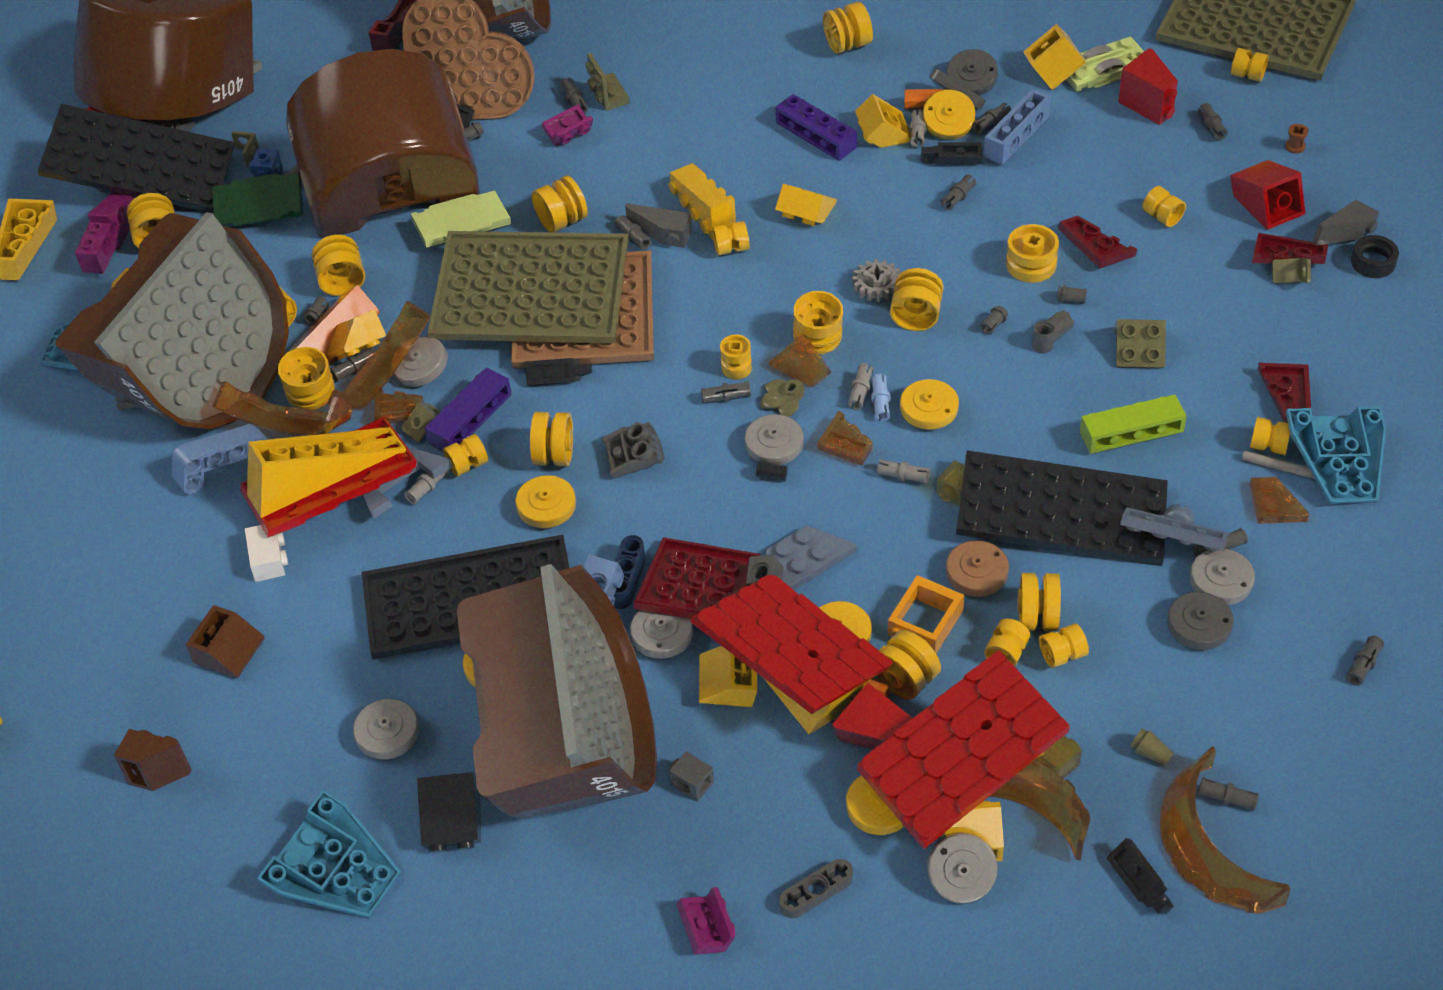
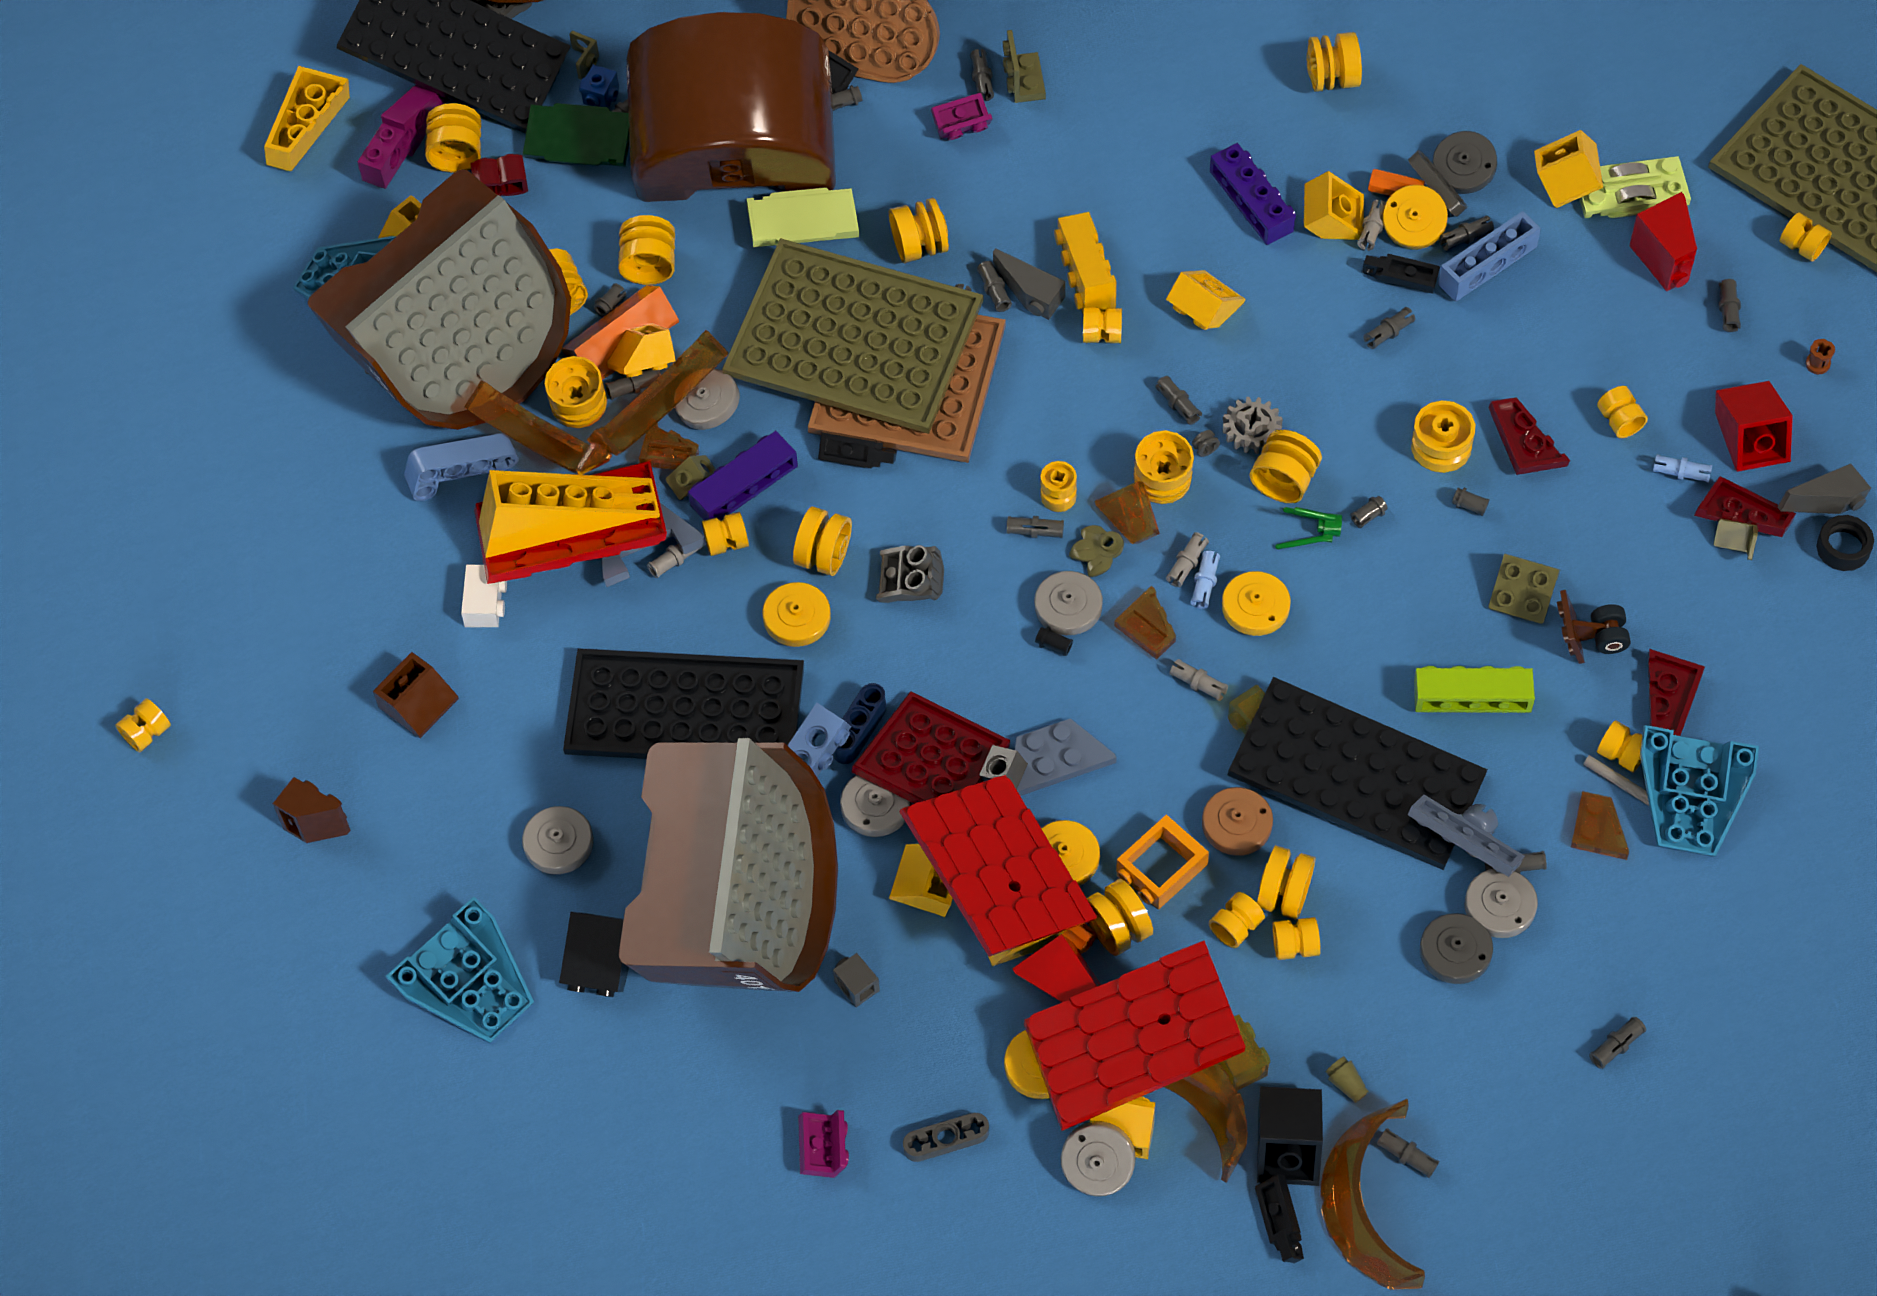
camera: 15 degrees right, 10 degrees up
(810, 277) = (1178, 400): none -> dark grey pin
(847, 300) = (1205, 443): none -> dark grey bush
(964, 335) = (1327, 523): none -> green plant
(1048, 331) = (1428, 544): dark grey piece -> none
(1122, 804) = (1290, 1134): none -> black slope
(1214, 354) = (1604, 627): none -> plate
(1226, 235) = (1682, 468): none -> light blue pin

